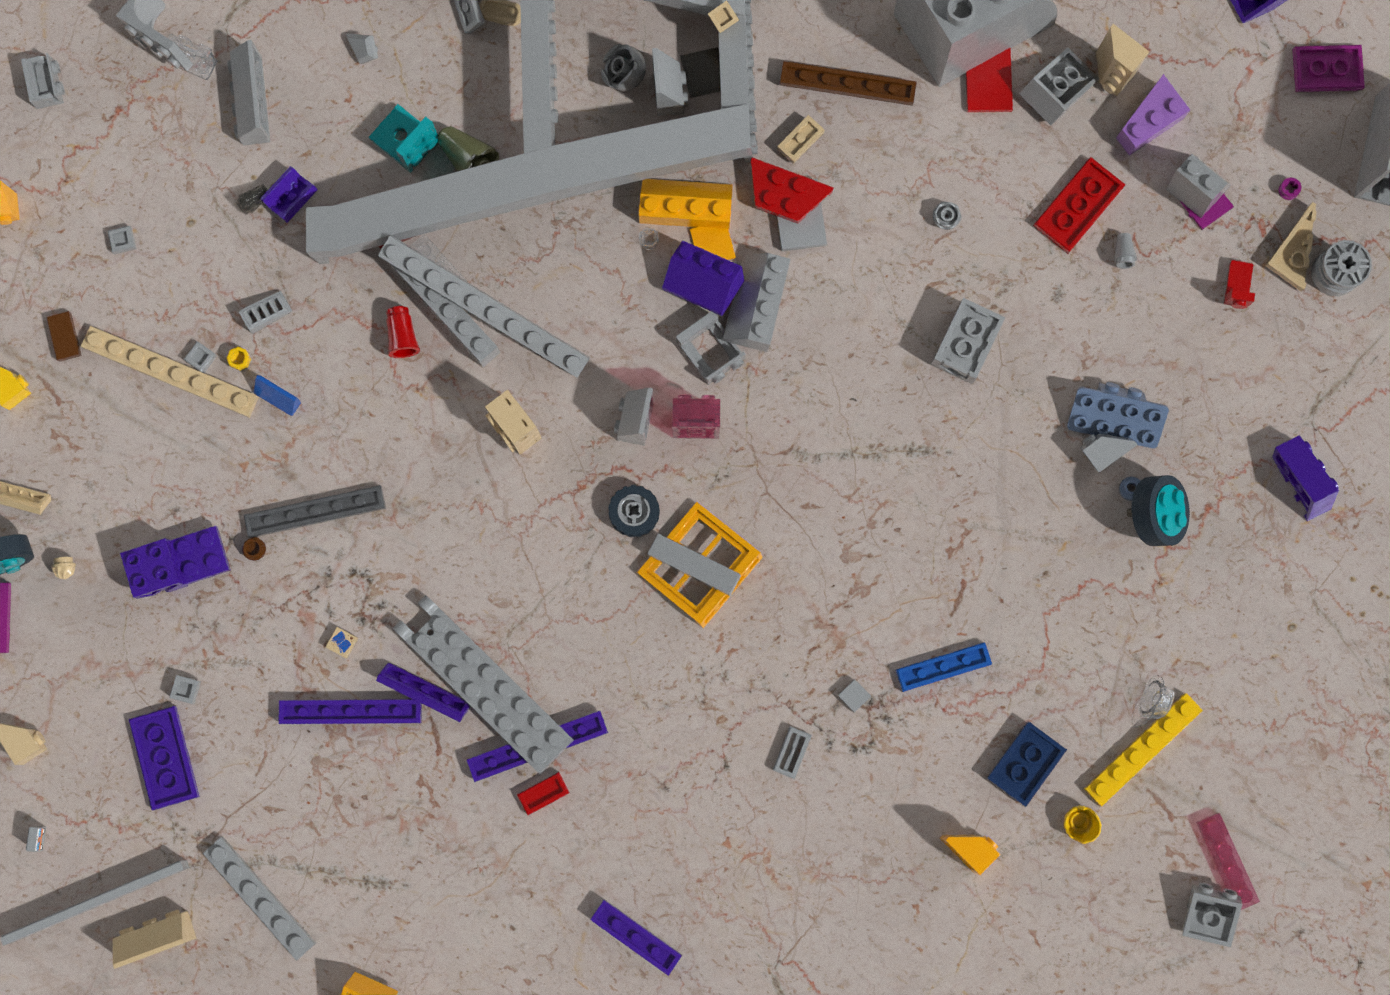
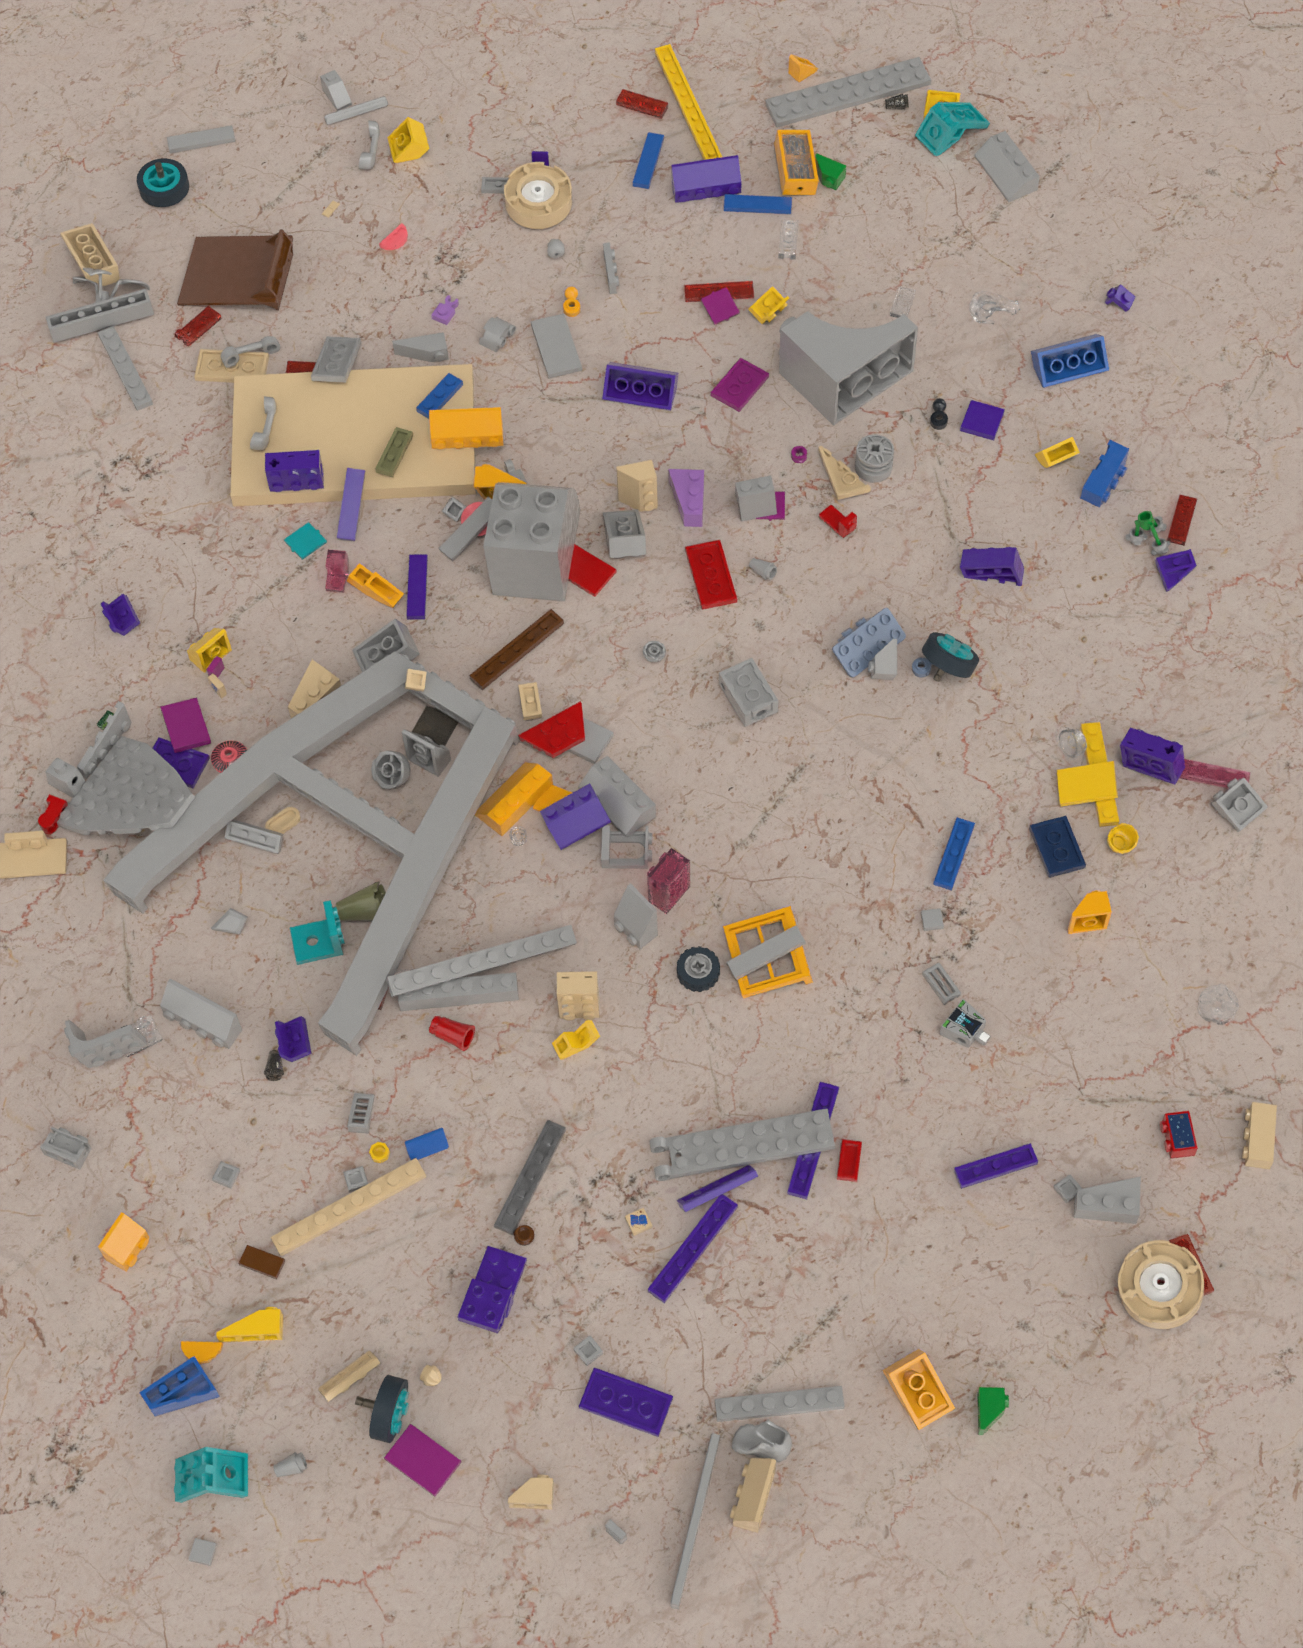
camera: 50 degrees left, 20 degrees down
(204, 902) = (763, 1441): none -> light grey piece
(477, 451) = (573, 1042): none -> yellow slope
(761, 808) = (965, 1026): none -> torso
(1119, 747) = (1087, 783): none -> yellow tile
(1198, 794) = (1152, 755): none -> dark purple piece

